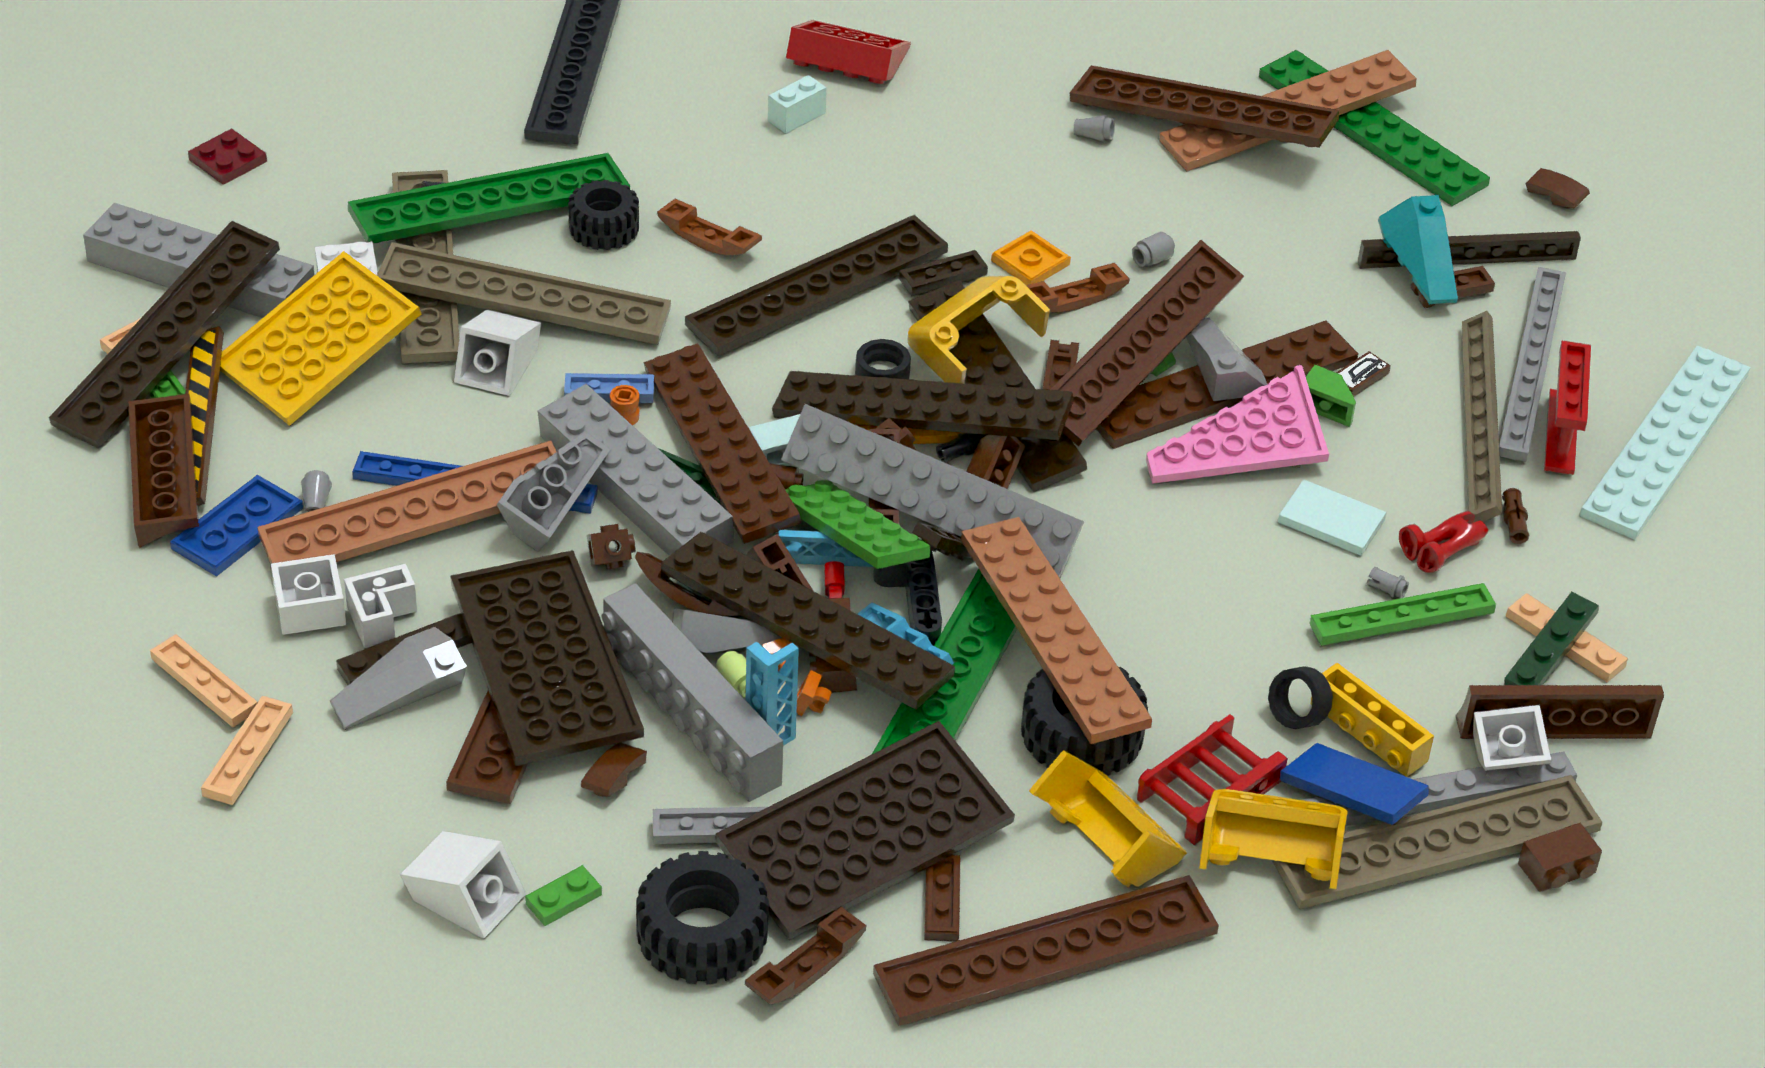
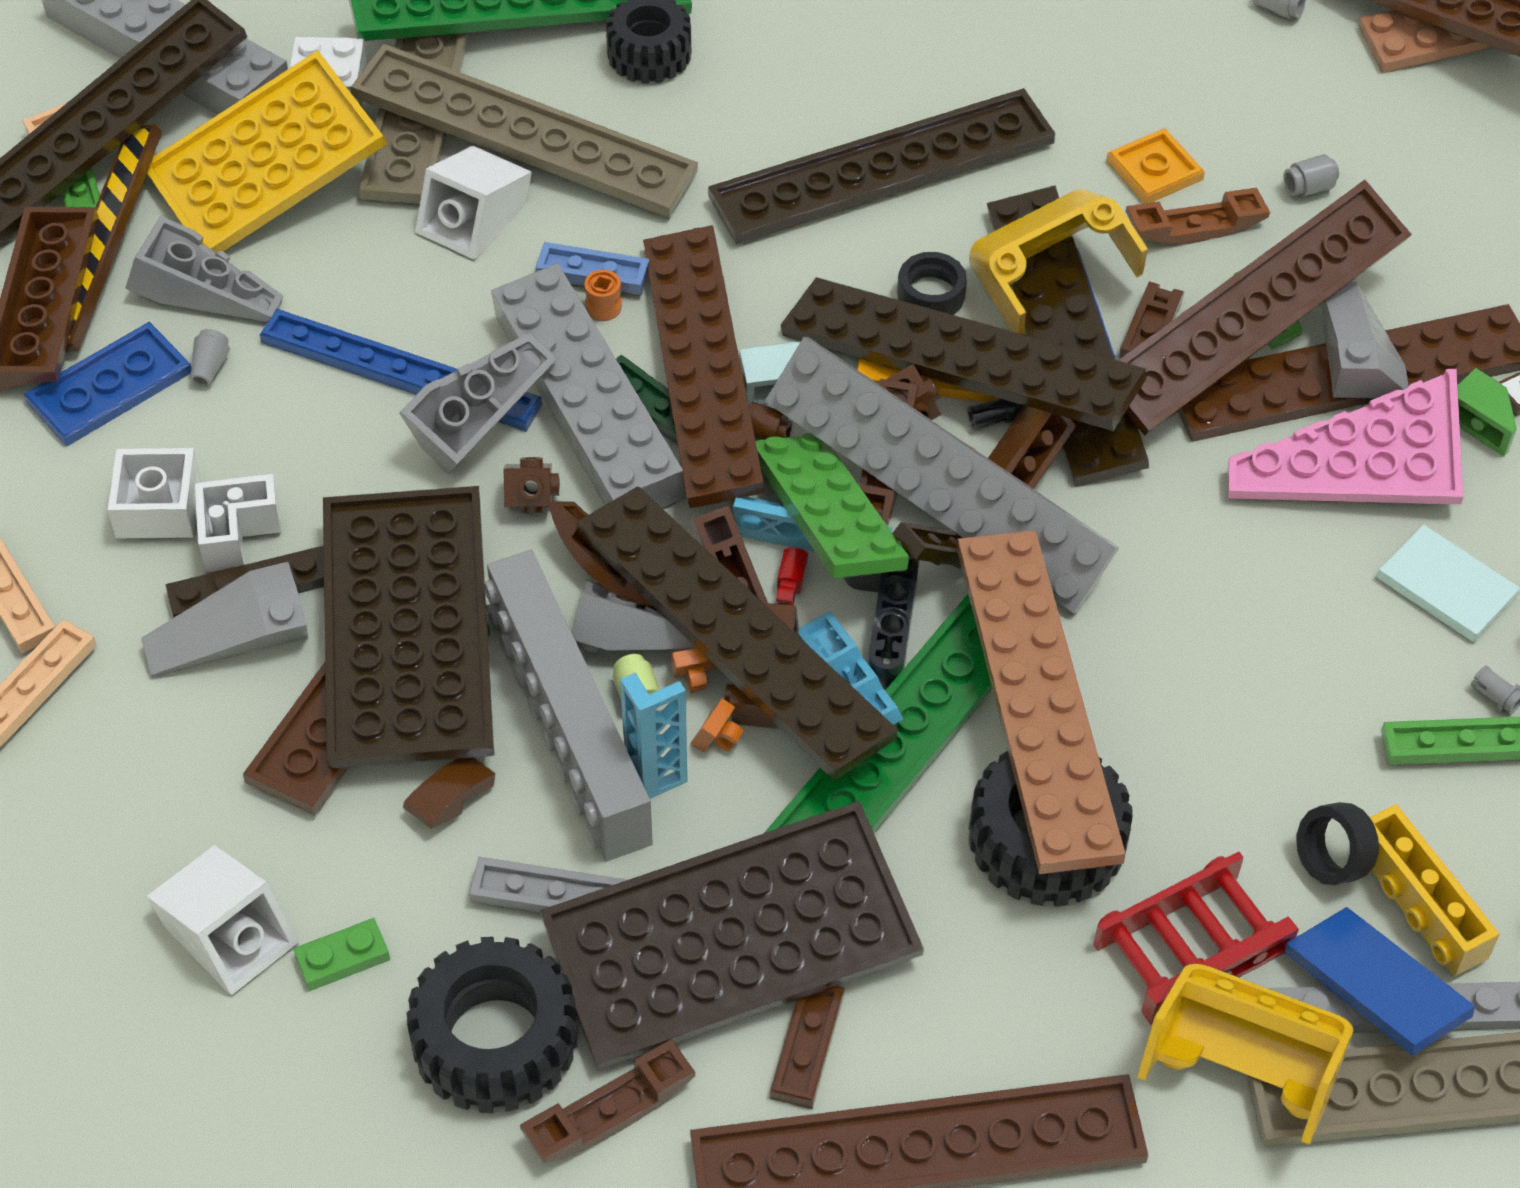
camera: 15 degrees right, 10 degrees up
(274, 434) = (185, 273): none -> light grey wedge
(400, 511) = (293, 398): nougat plate -> none
(684, 221) = (764, 77): dark orange slope -> none
(943, 272) = (1040, 170): dark brown plate -> none
(1108, 818) = (1051, 974): yellow windscreen -> none

